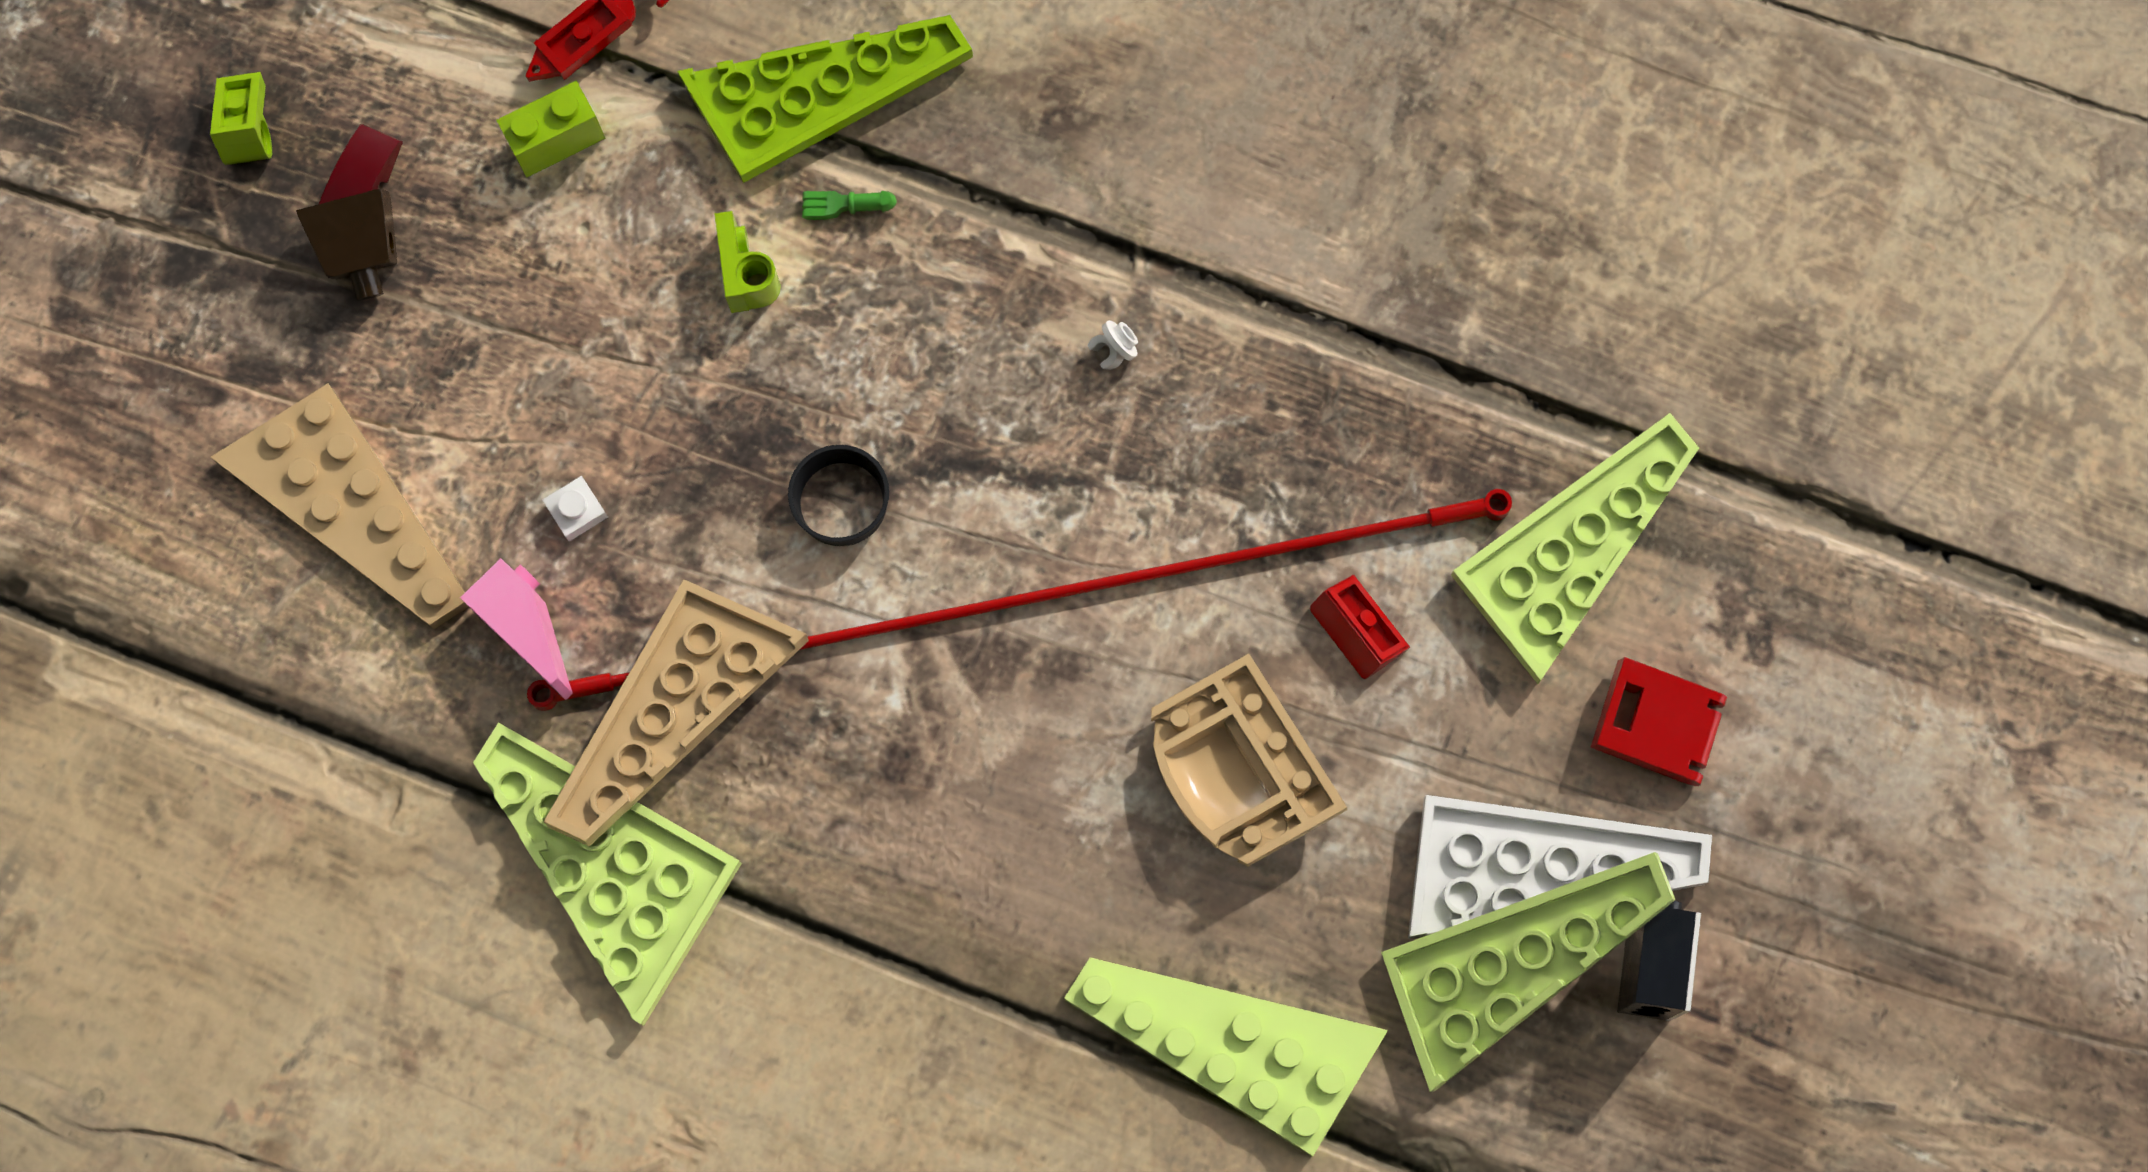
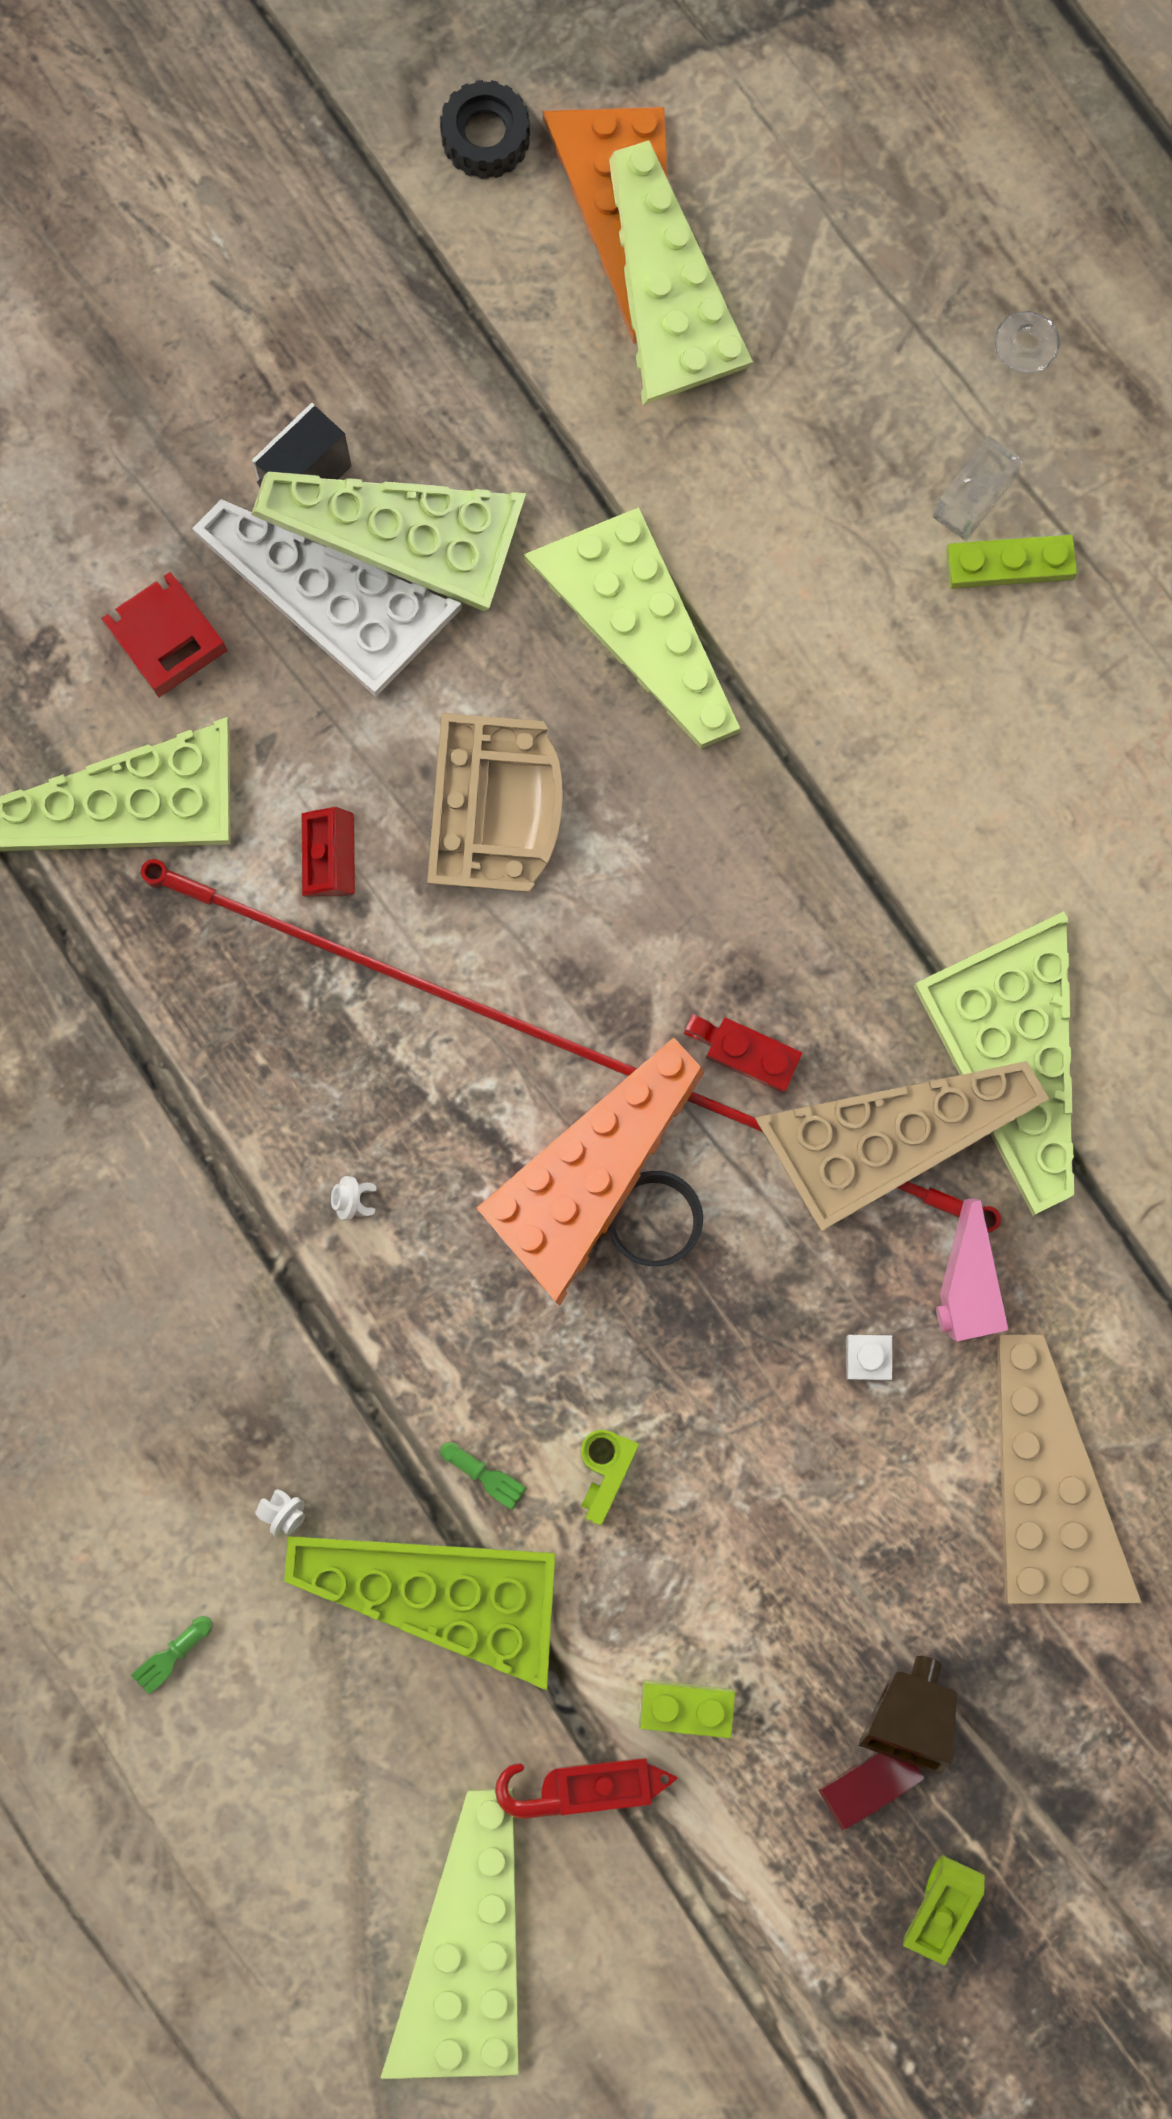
camera: 150 degrees left, 5 degrees up
(857, 700) = (746, 1051): none -> red plate
(926, 481) = (581, 1180): none -> wing
(984, 63) = (282, 1513): none -> white plate

